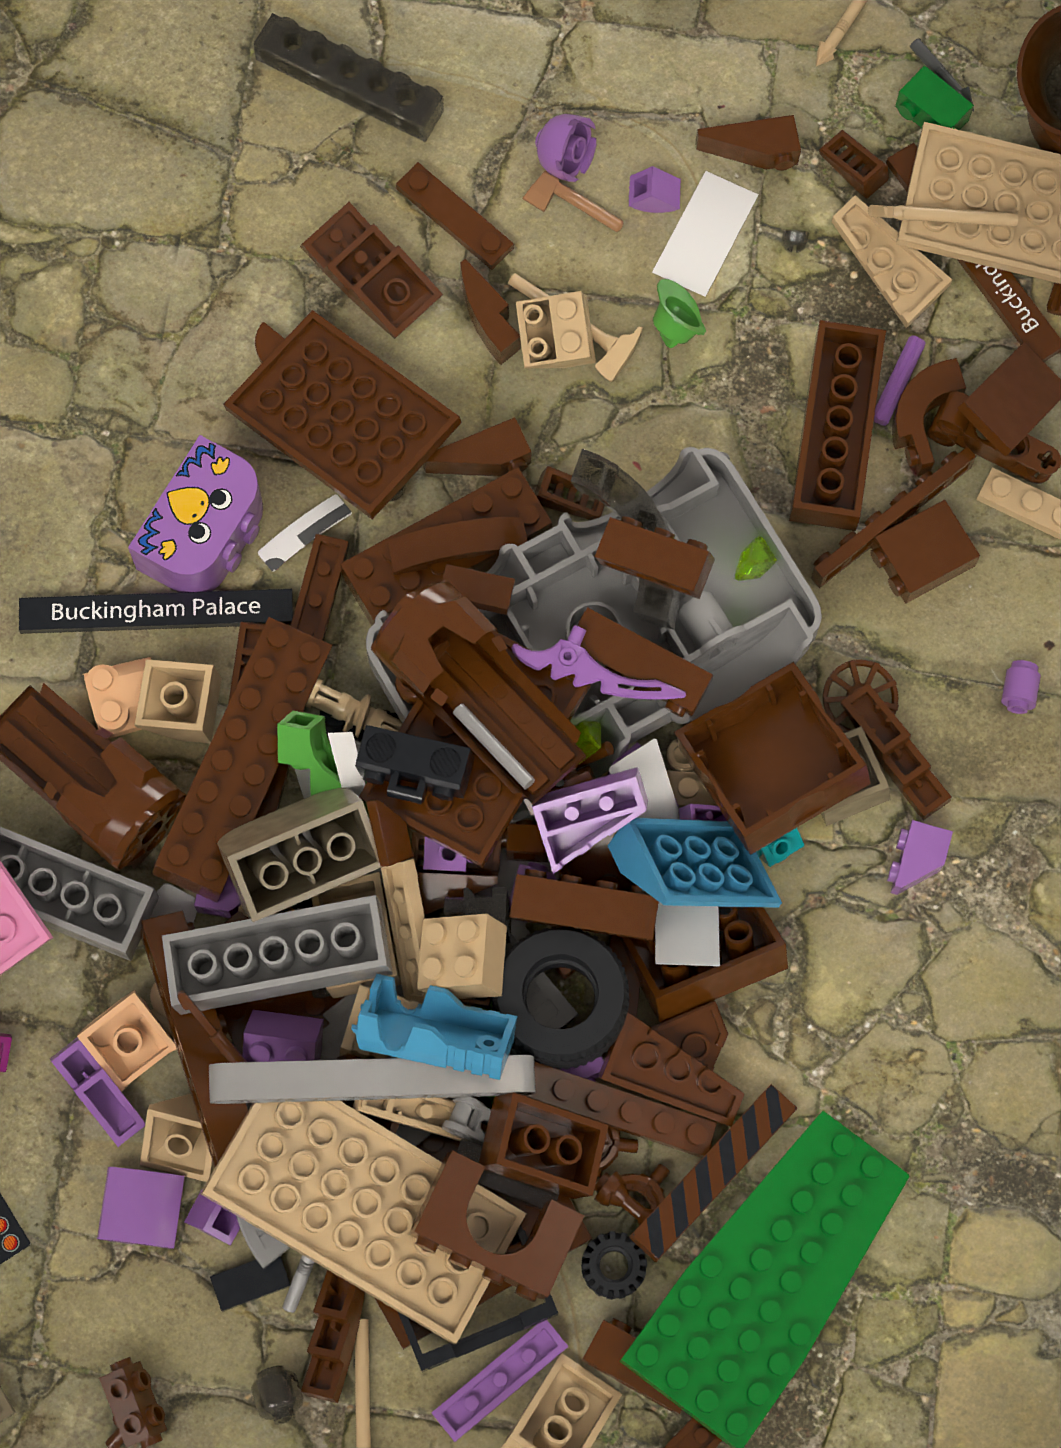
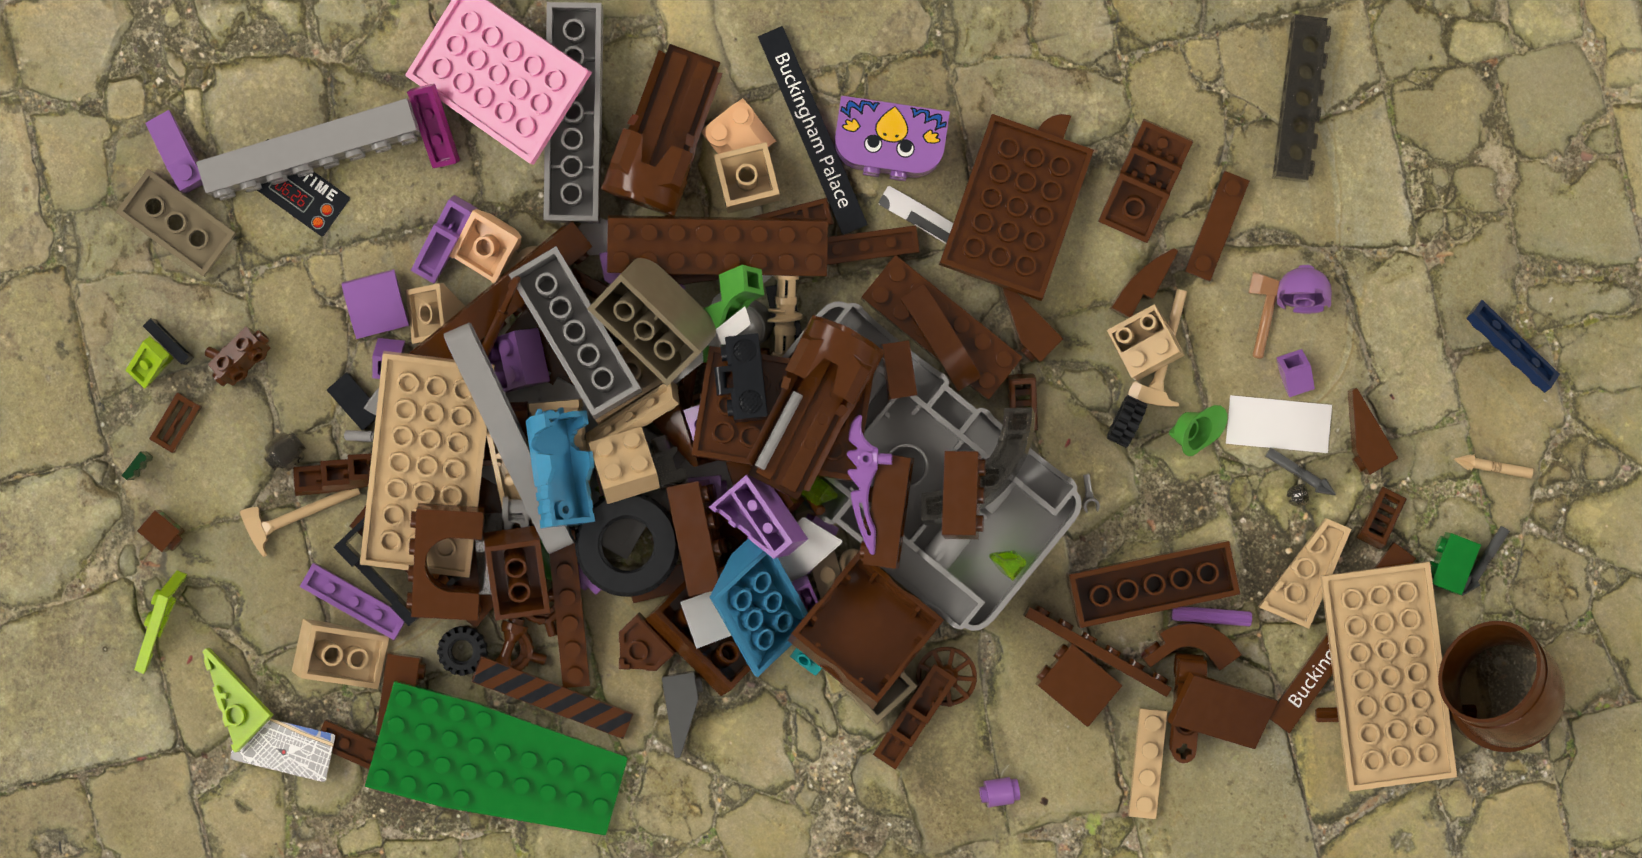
camera: 70 degrees right, 15 degrees up
(389, 834) = (687, 380): reddish brown tile -> none
(638, 384) = (1127, 421): none -> black tyre
(660, 1069) = (608, 638): reddish brown wing -> none
(779, 1019) = (681, 699): none -> dark grey slope
(793, 211) = (1320, 485): none -> dark grey piece
(921, 856) = (842, 762): medium lavender slope -> none
(944, 215) = (1339, 560): tan piece -> none

